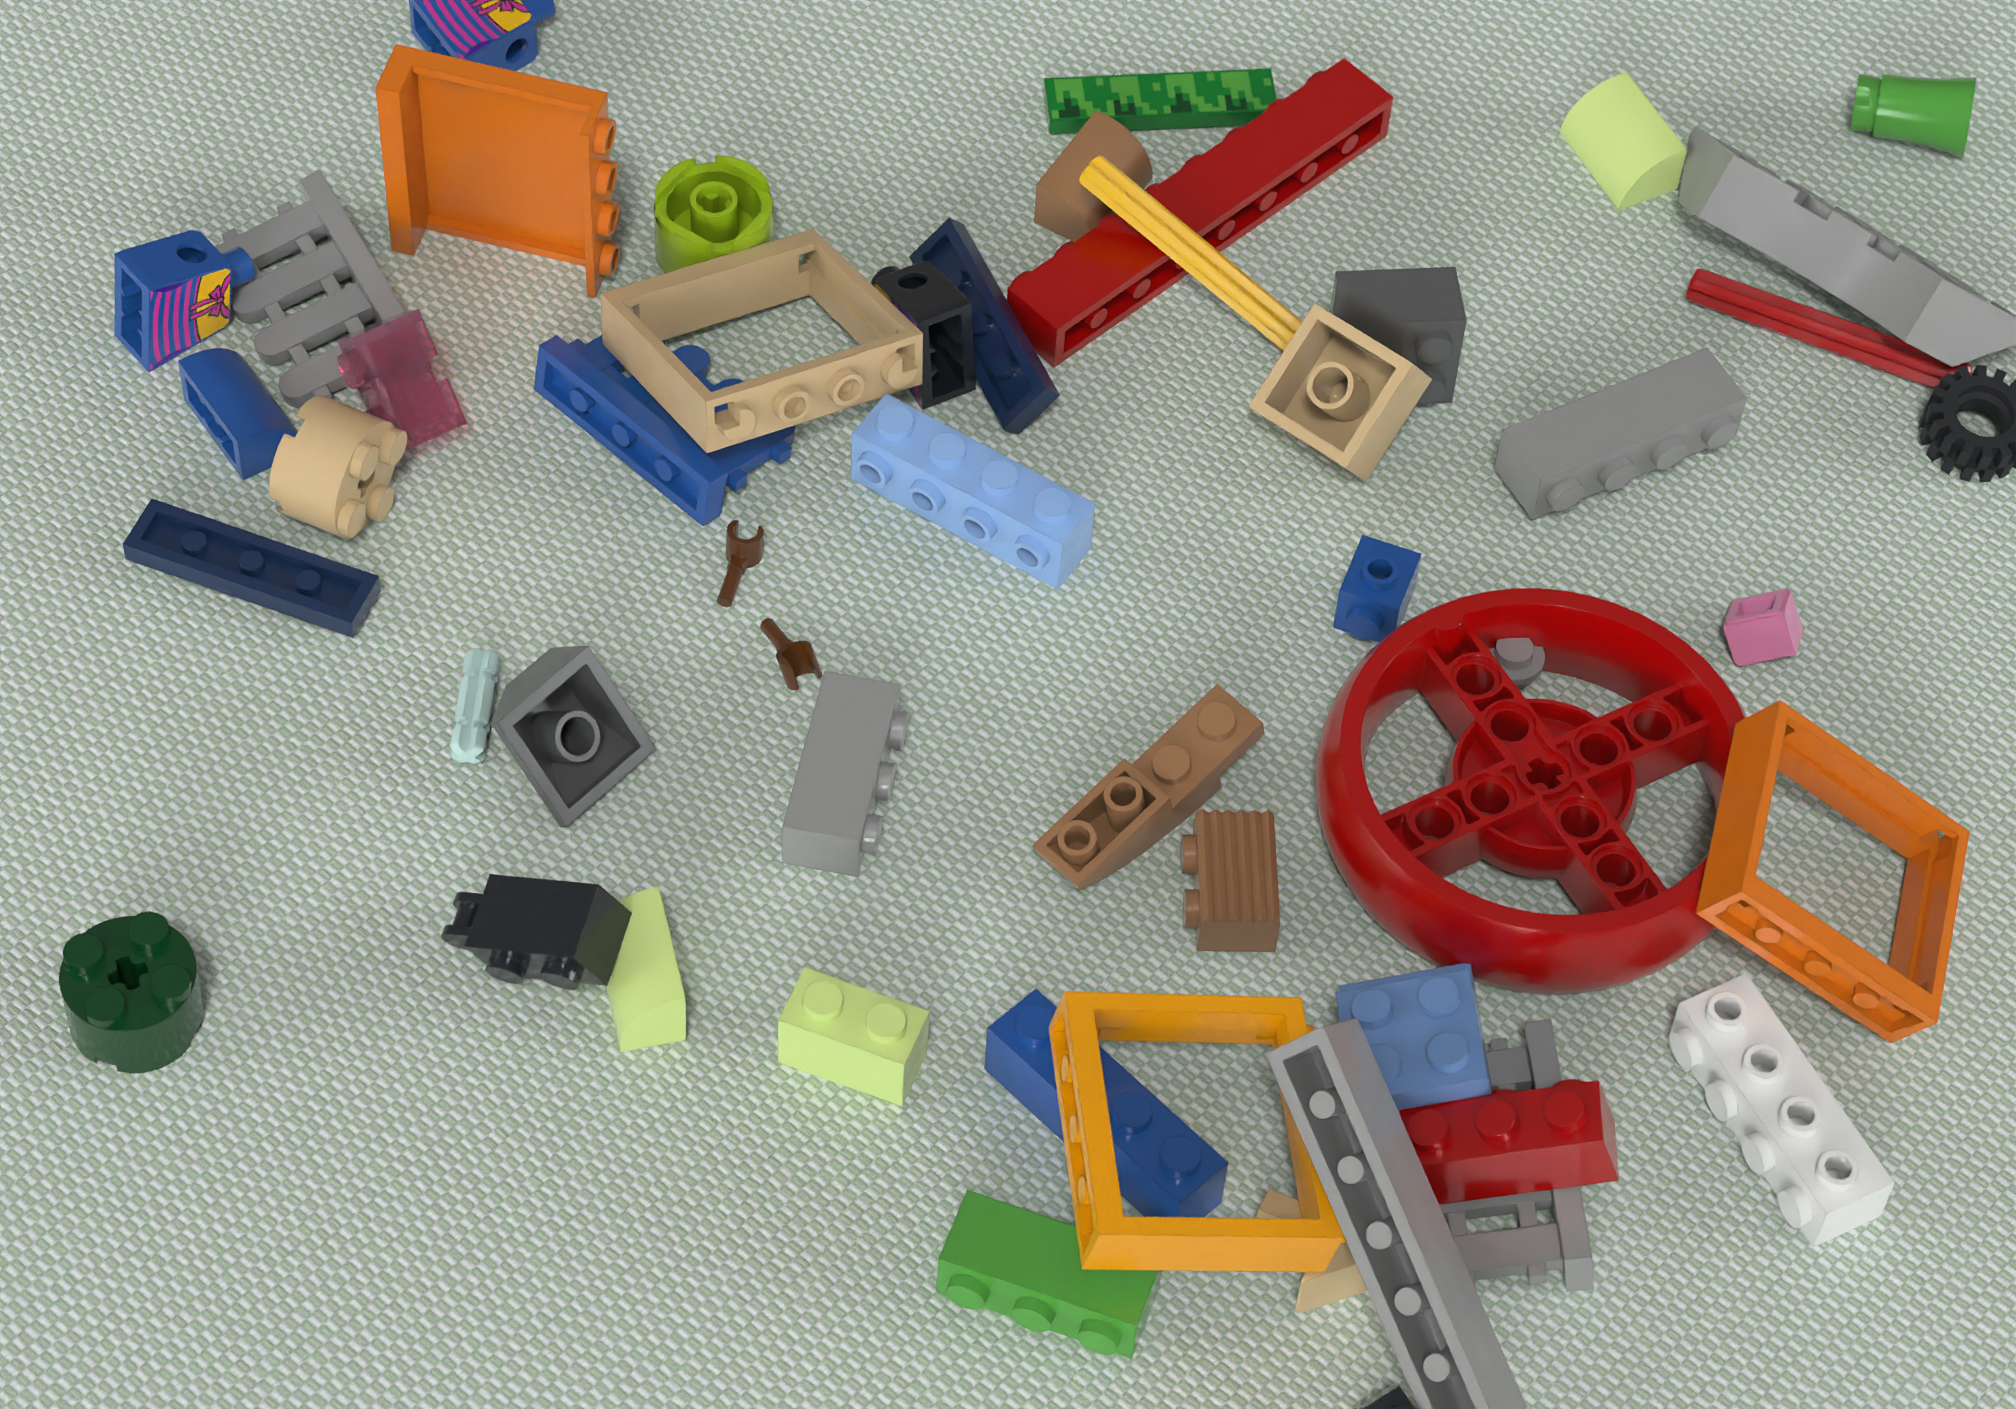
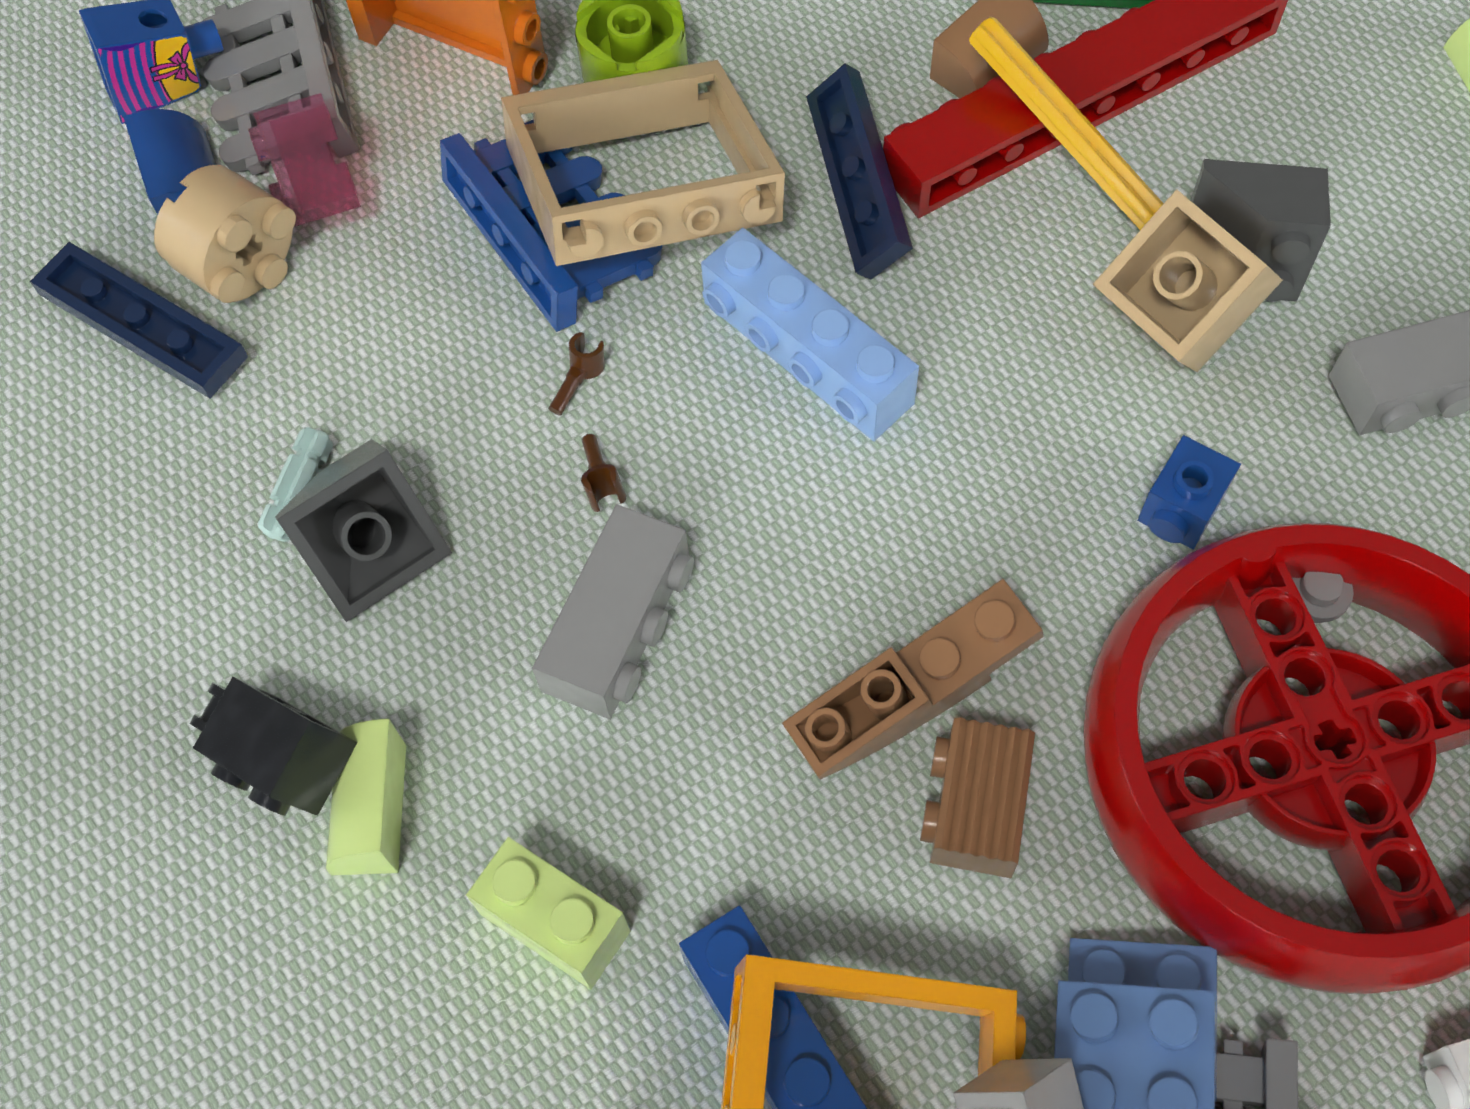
camera: 20 degrees right, 10 degrees up
(946, 325) = (806, 151): black torso -> none

